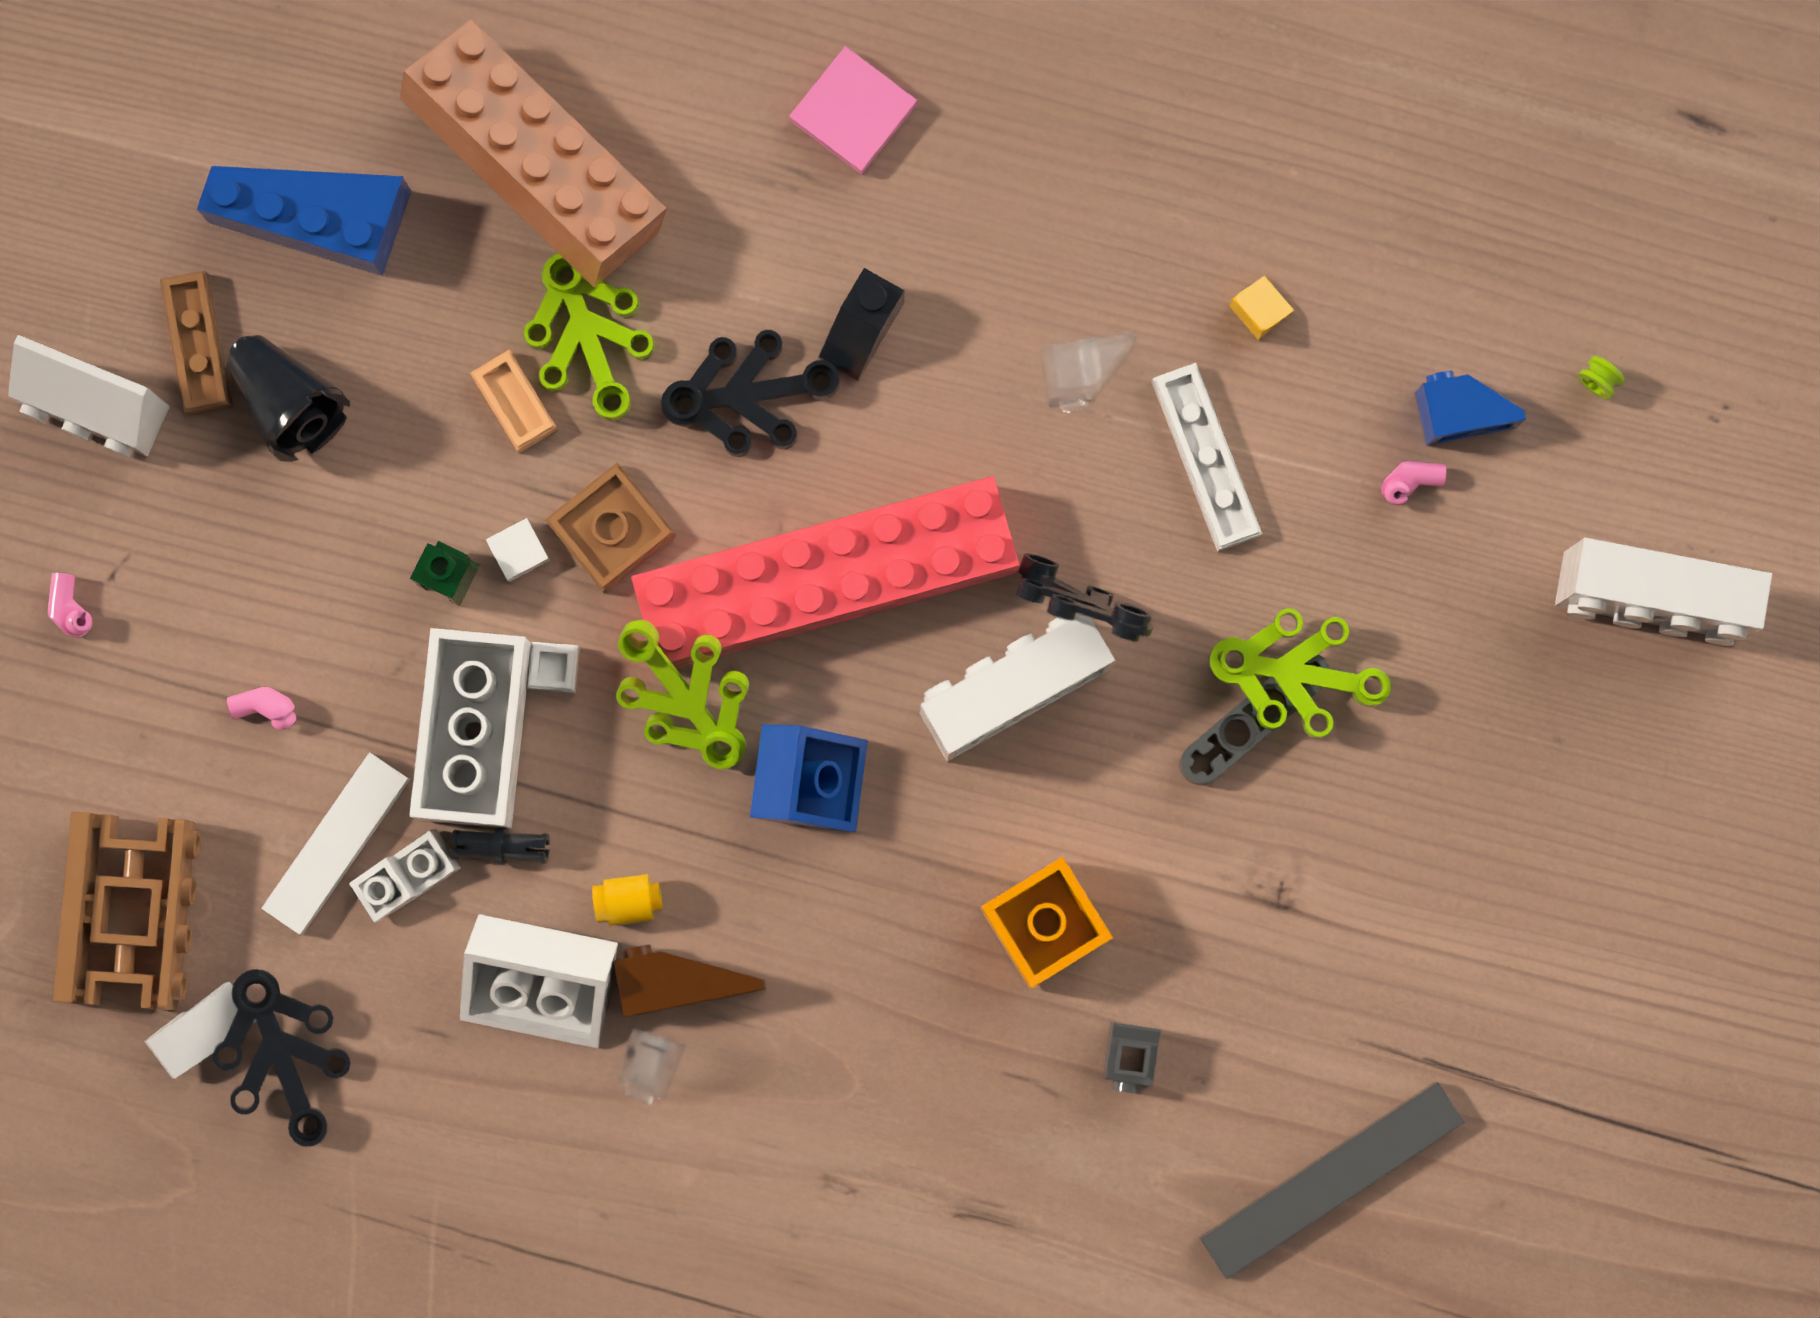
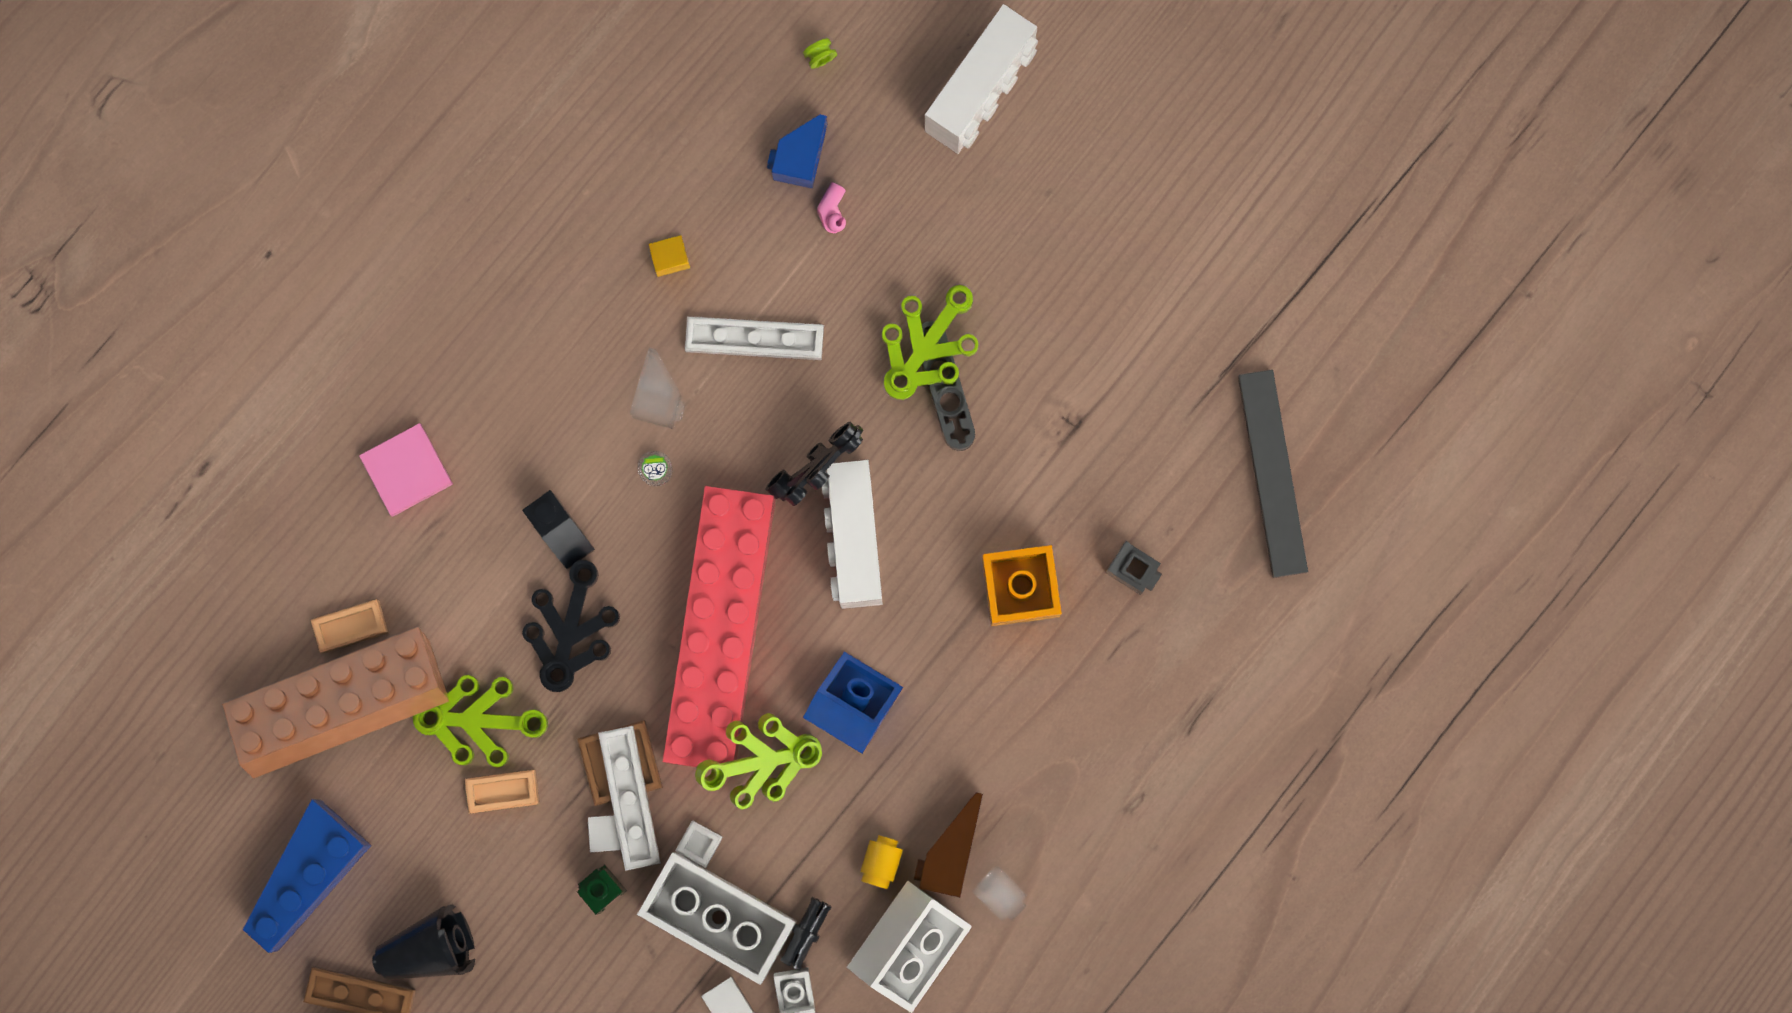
camera: 60 degrees left, 0 degrees up
(571, 557) = (629, 798): none -> white tile
(633, 129) = (349, 626): none -> light nougat tile
(990, 408) = (655, 468): none -> tile

